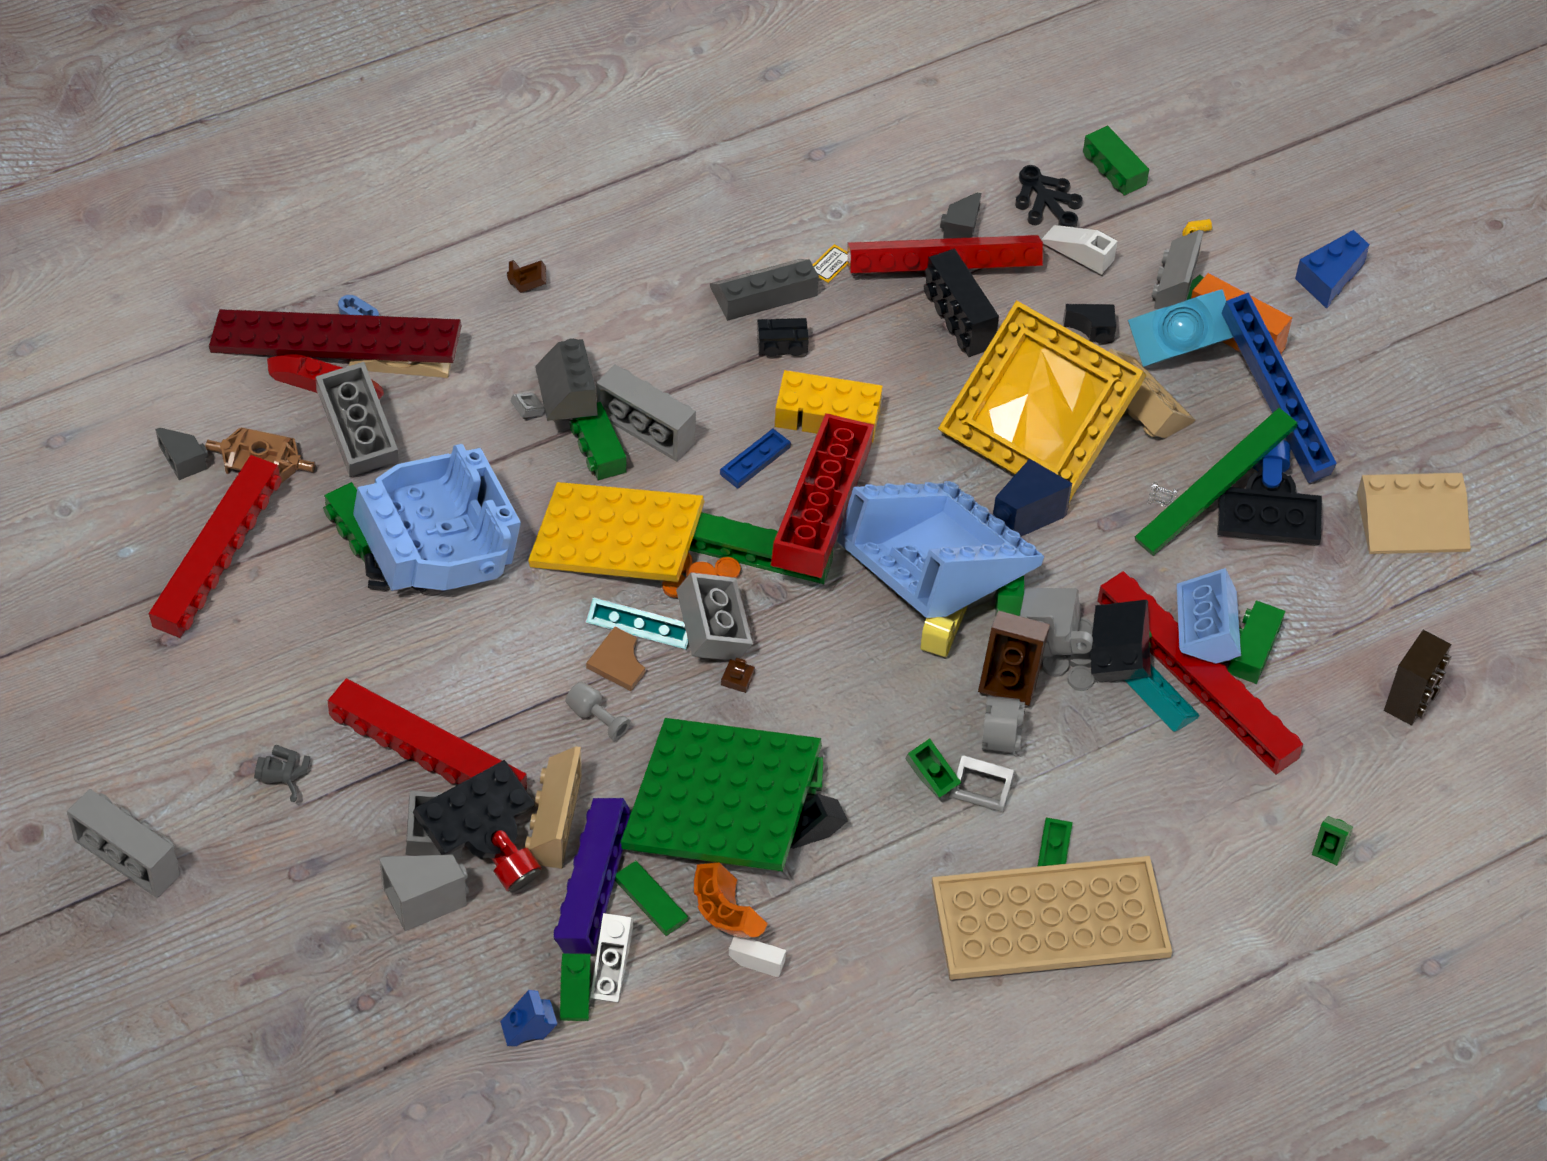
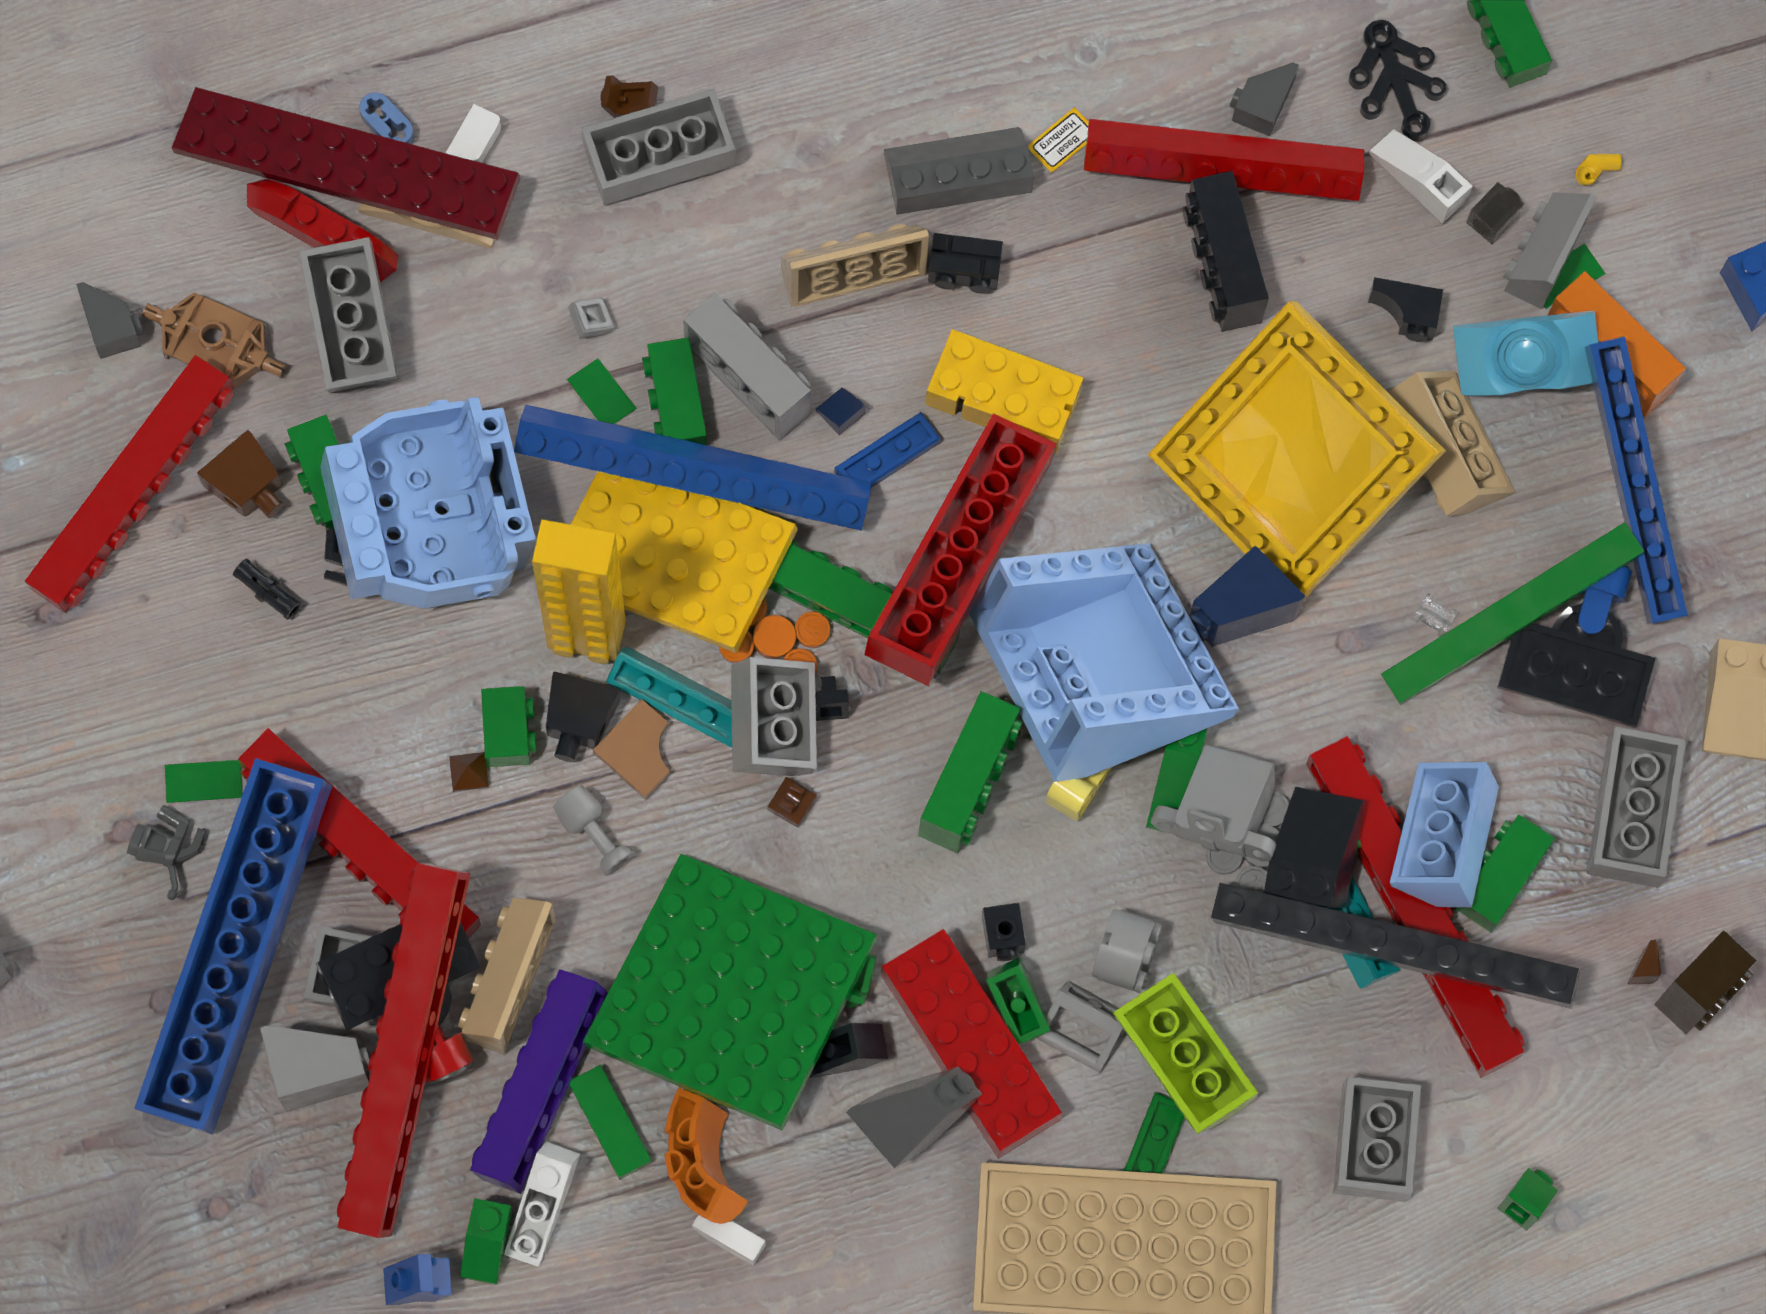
camera: 10 degrees right, 20 degrees up
(297, 532) = (243, 477): none -> reddish brown torso
(302, 727) = (203, 781): none -> green sticker
(327, 598) = (249, 574): none -> black pin
(347, 819) = (233, 946): none -> blue brick
(425, 306) = (476, 135): none -> white piece
(489, 859) = (402, 1050): none -> red brick
(498, 692) = (468, 772): none -> reddish brown slope
(520, 656) = (506, 726): none -> green brick
(544, 451) = (601, 393): none -> green sticker
(554, 297) = (659, 146): none -> light grey brick
(563, 531) = (579, 591): none -> yellow brick
(567, 381) = (647, 299): dark grey slope -> none
(571, 640) = (578, 713): none -> black torso
(622, 475) = (692, 467): none -> blue brick
(707, 342) = (855, 264): none -> tan slope
(717, 436) = (841, 410): none -> dark blue slope
(754, 606) = (830, 702): none -> black tile
(863, 632) = (968, 774): none -> green brick
(878, 844) = (914, 1113): none -> dark grey slope
(905, 803) = (968, 1033): none -> red brick
(910, 728) = (1003, 931): none -> black brick
(1013, 657) = (1161, 858): reddish brown brick -> none
(1065, 781) = (1186, 1054): none -> lime slope
(1135, 261) = (1495, 212): none -> clear smoke brick
(1194, 687) = (1396, 945): none -> black brick
(1214, 816) = (1377, 1139): none -> light grey brick
(1335, 586) = (1636, 807): none -> light grey brick
(1373, 683) = (1648, 966): none -> reddish brown slope

